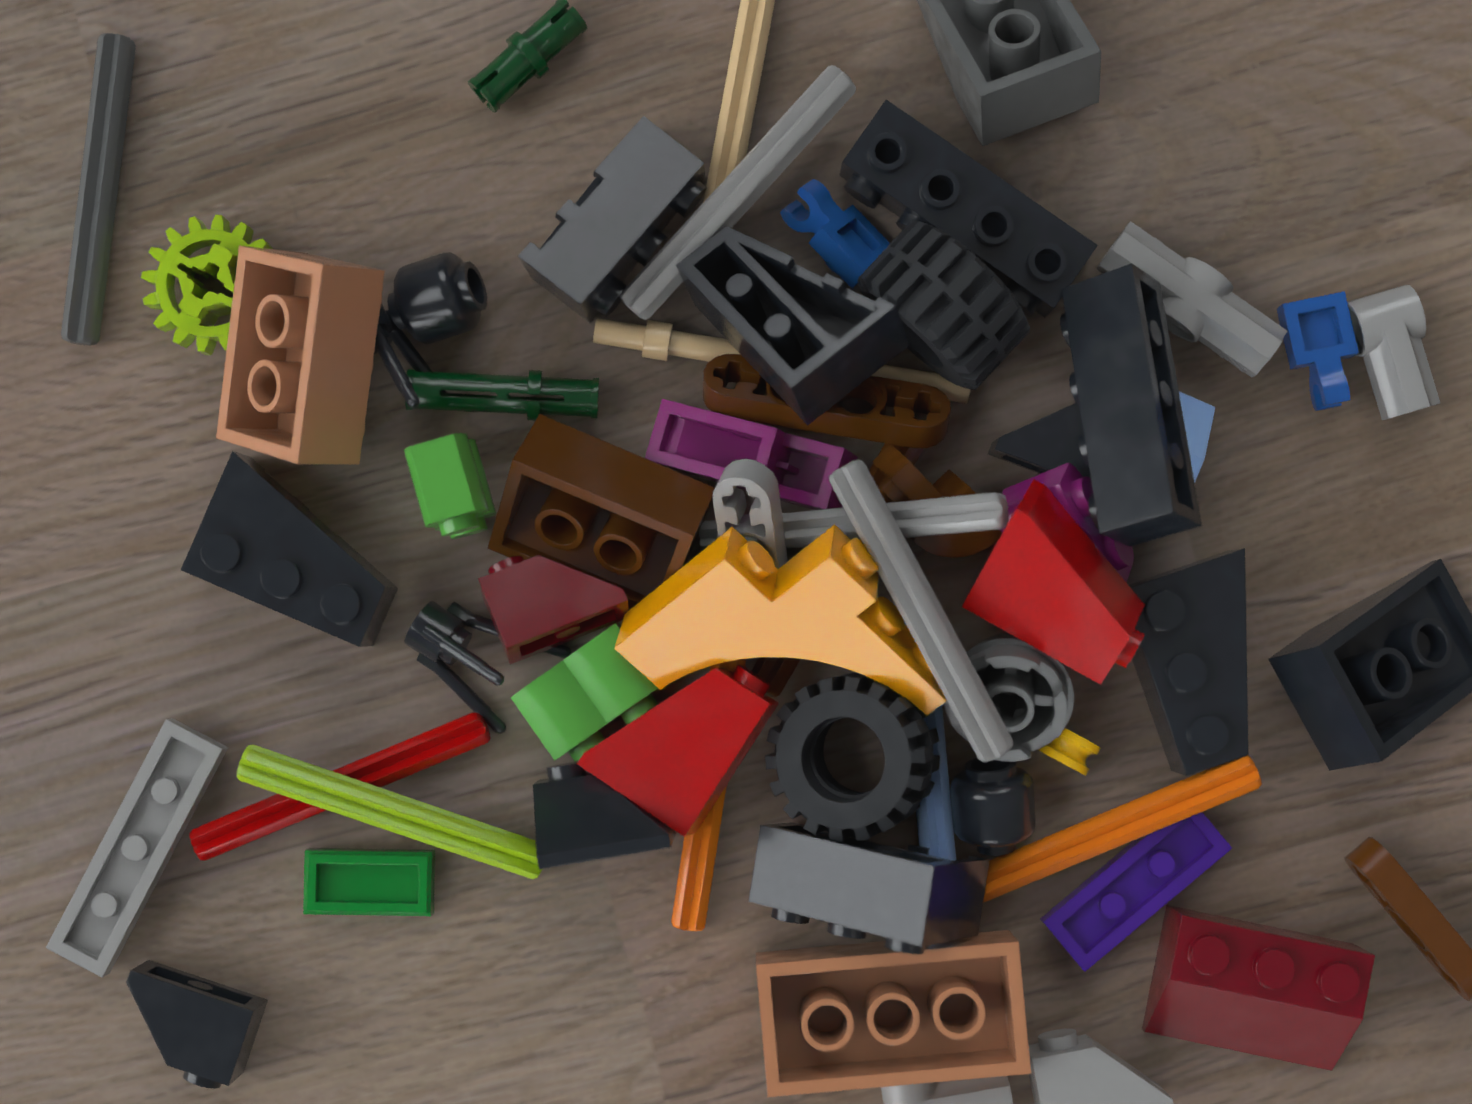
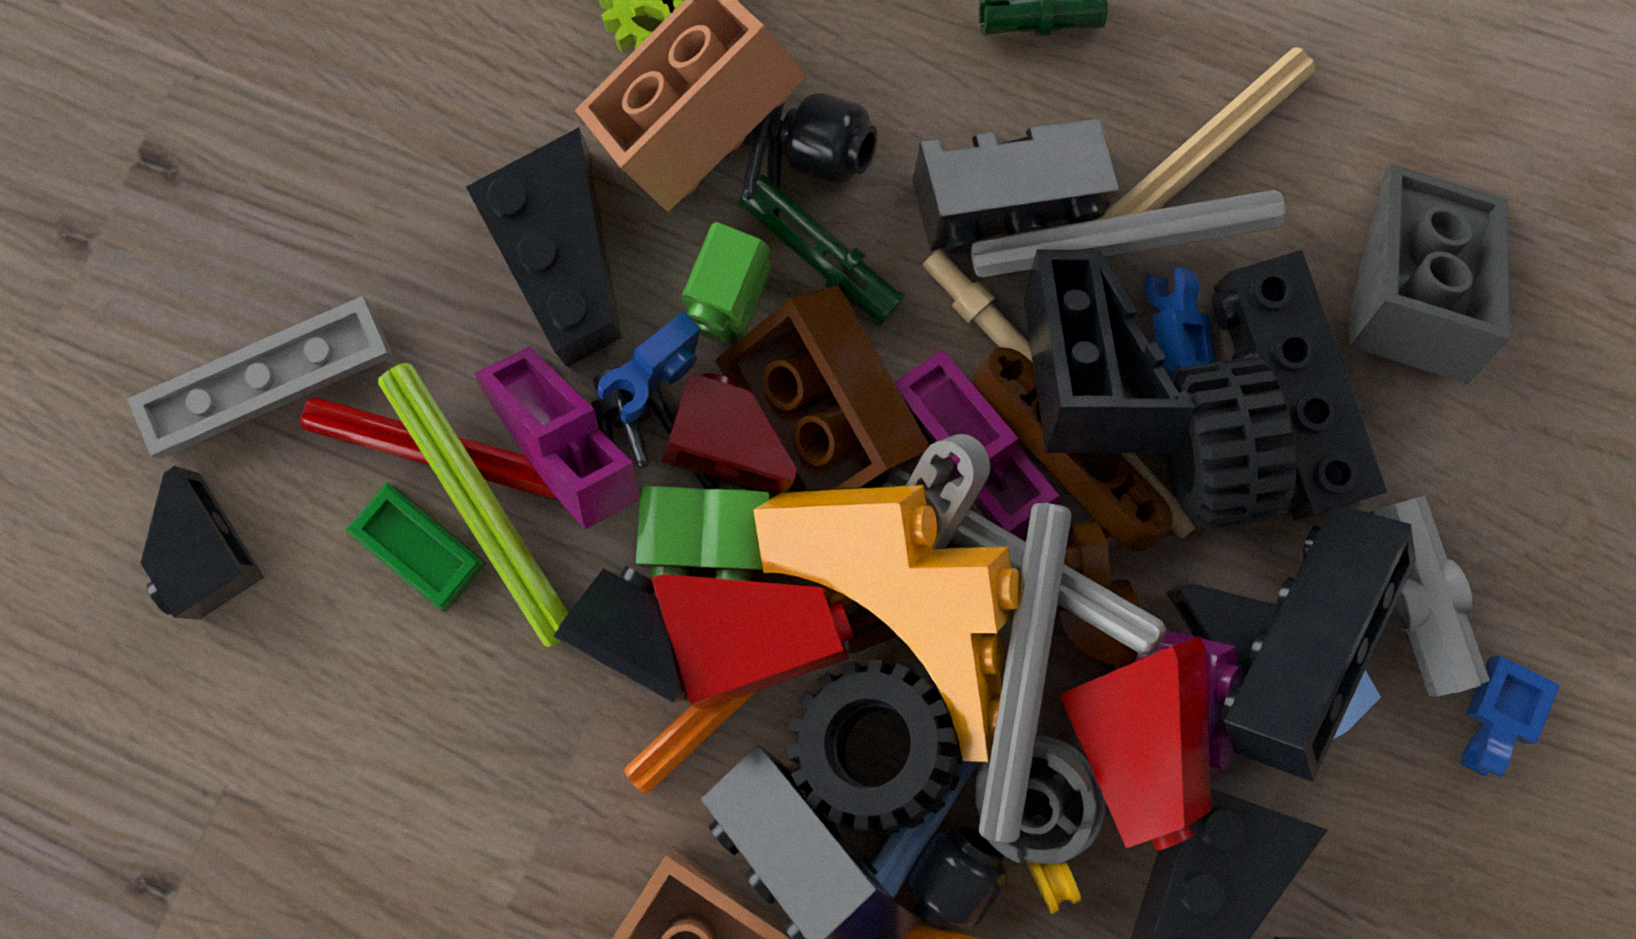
camera: 30 degrees right, 5 degrees down
(414, 708) = (560, 437): none -> magenta slope
(447, 583) = (660, 358): none -> blue plate
(1389, 340) = (1564, 765): light grey piece -> none

